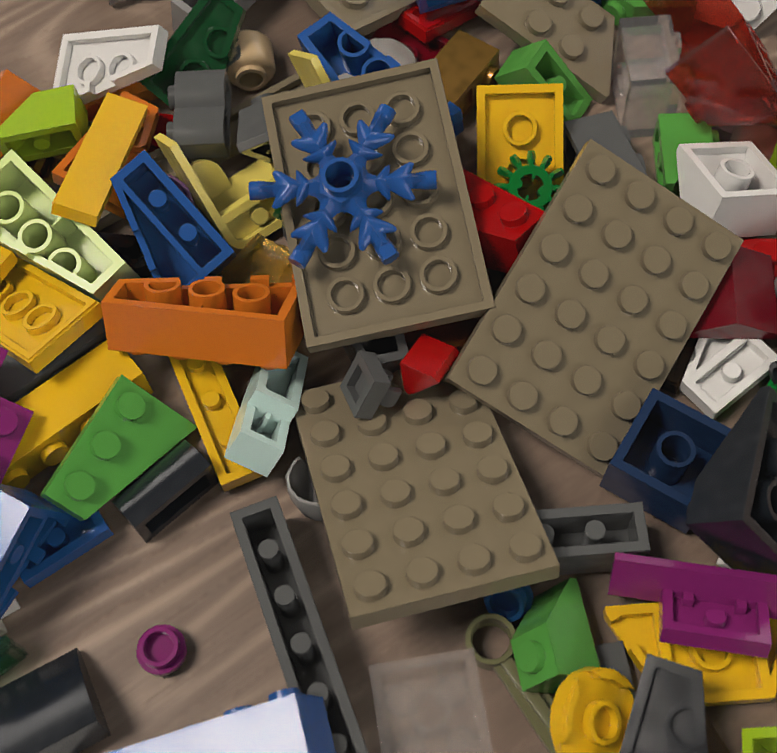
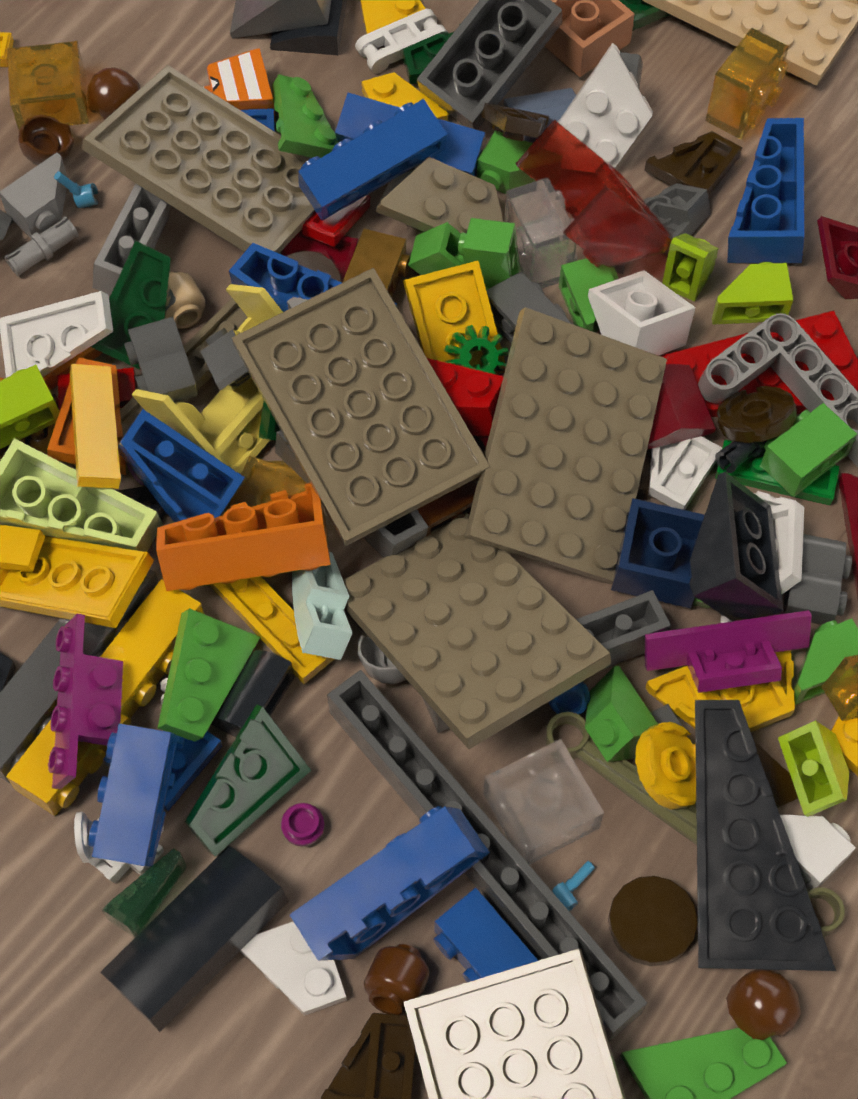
camera: 25 degrees left, 0 degrees up
(115, 585) = (247, 782): none -> wing
(343, 186) = (334, 385): blue piece -> none
(368, 386) = (403, 560): dark grey tile -> none
(426, 363) = (446, 528): red slope -> none
(587, 78) = (493, 246): none -> bright green slope

